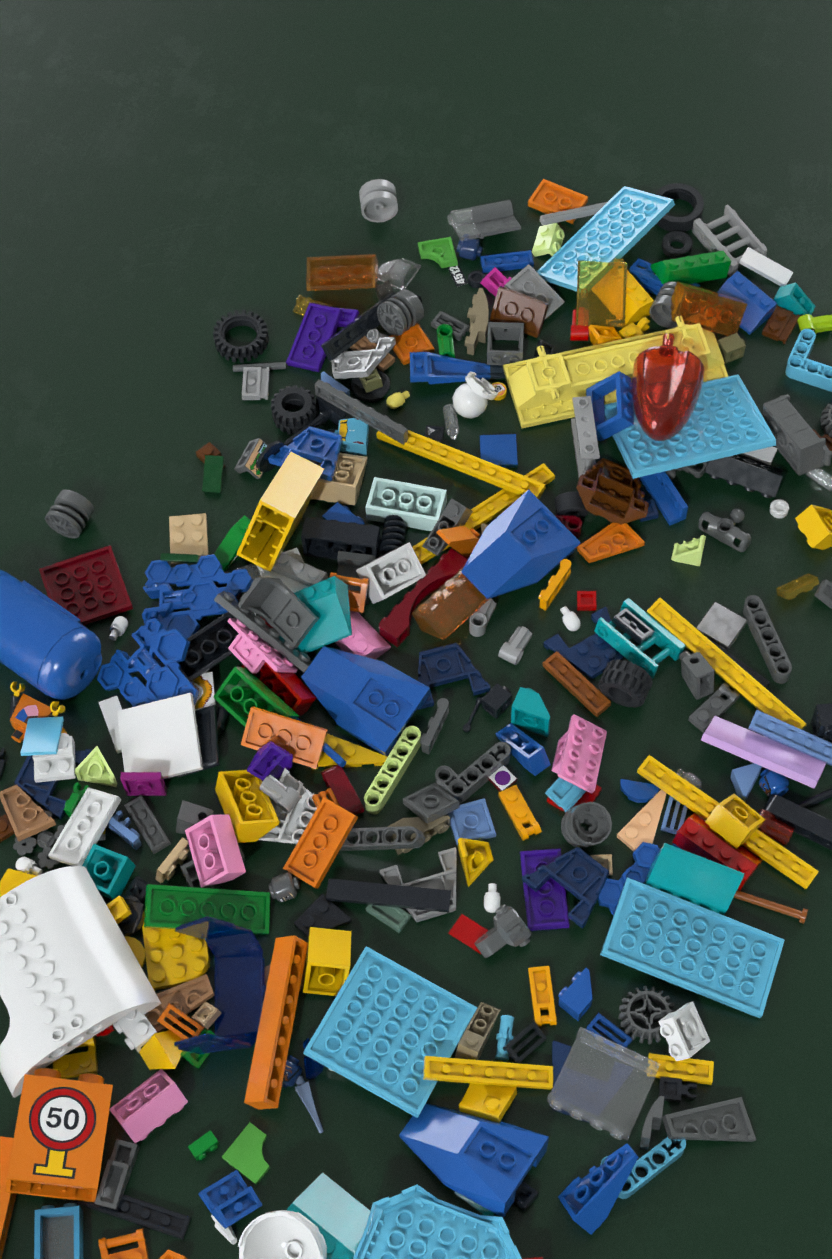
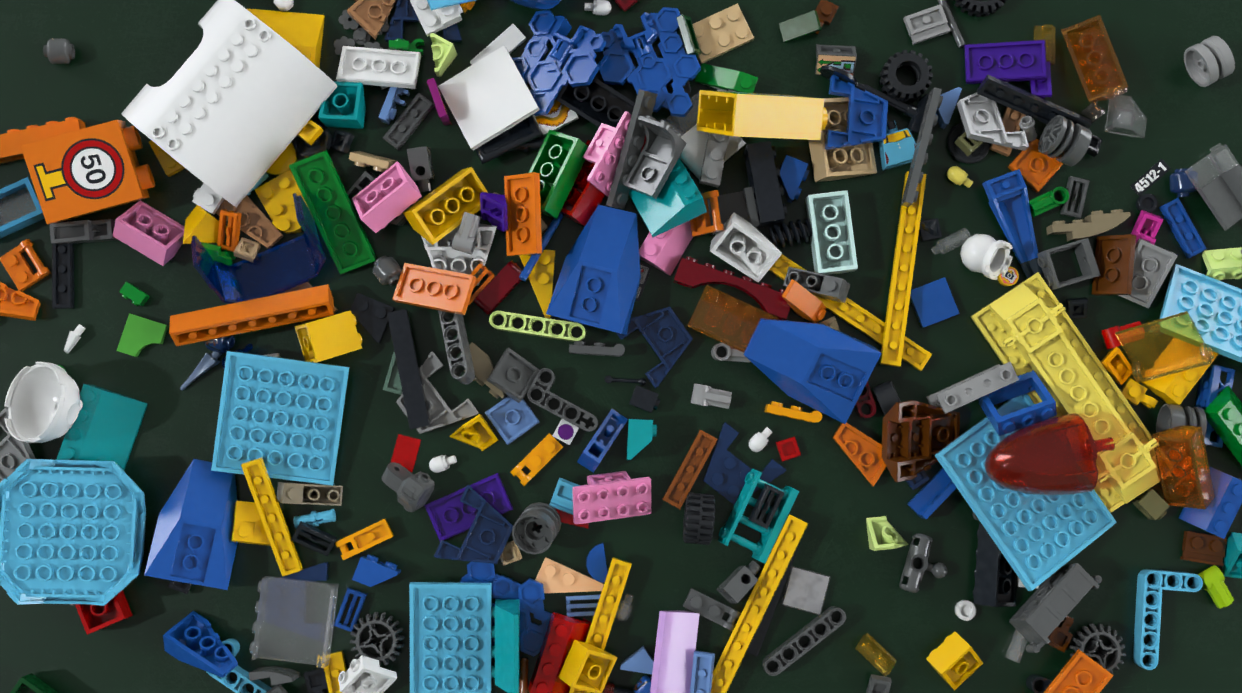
camera: 65 degrees right, 25 degrees up
(28, 866) = (329, 32): white cylinder -> none
(230, 1199) = (94, 335): blue slope -> none
(440, 251) = (1169, 150): bright green tile -> none

